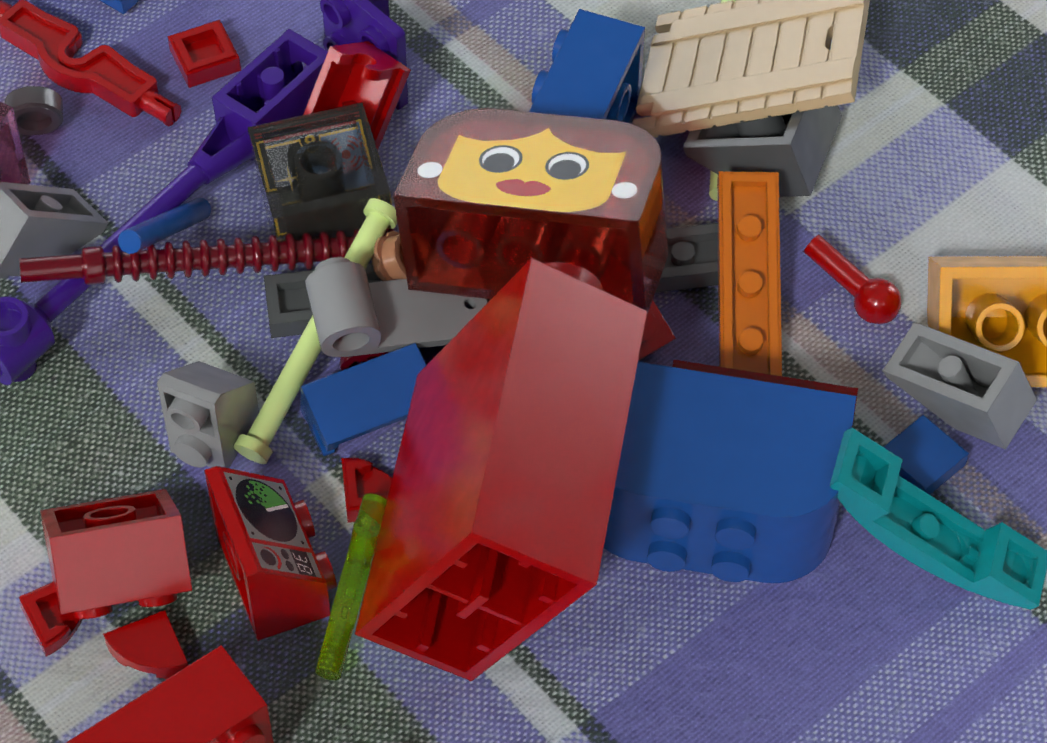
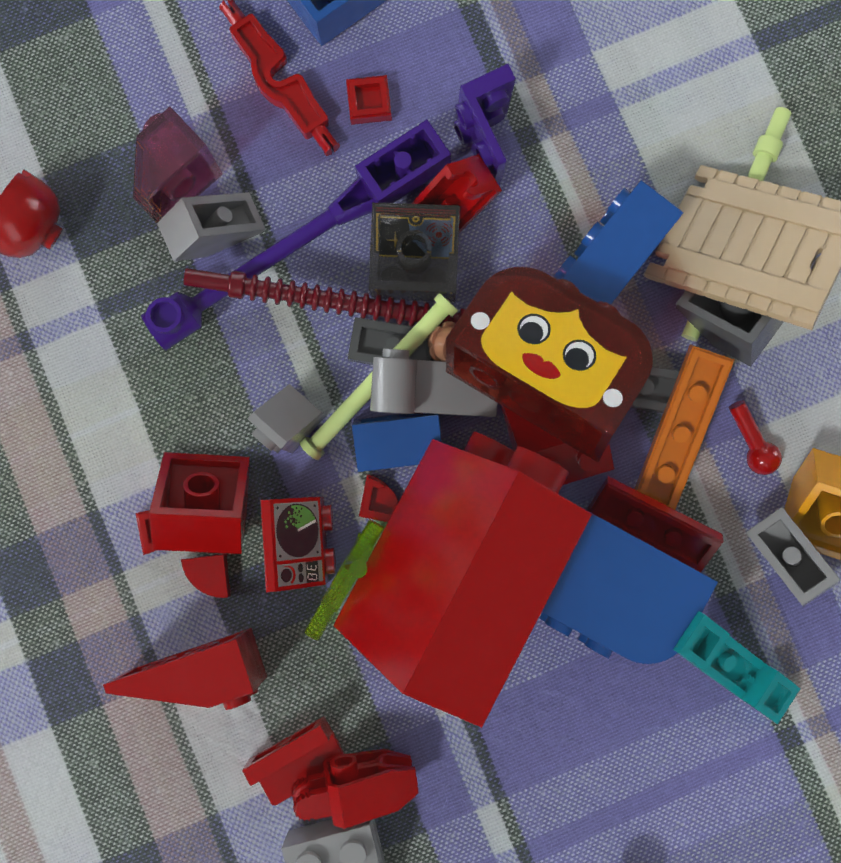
camera: 15 degrees right, 30 degrees up
(36, 109) = (235, 120): dark grey tile -> none
(164, 225) = (293, 266): blue bar -> none
(927, 455) = (747, 592): blue tile -> none

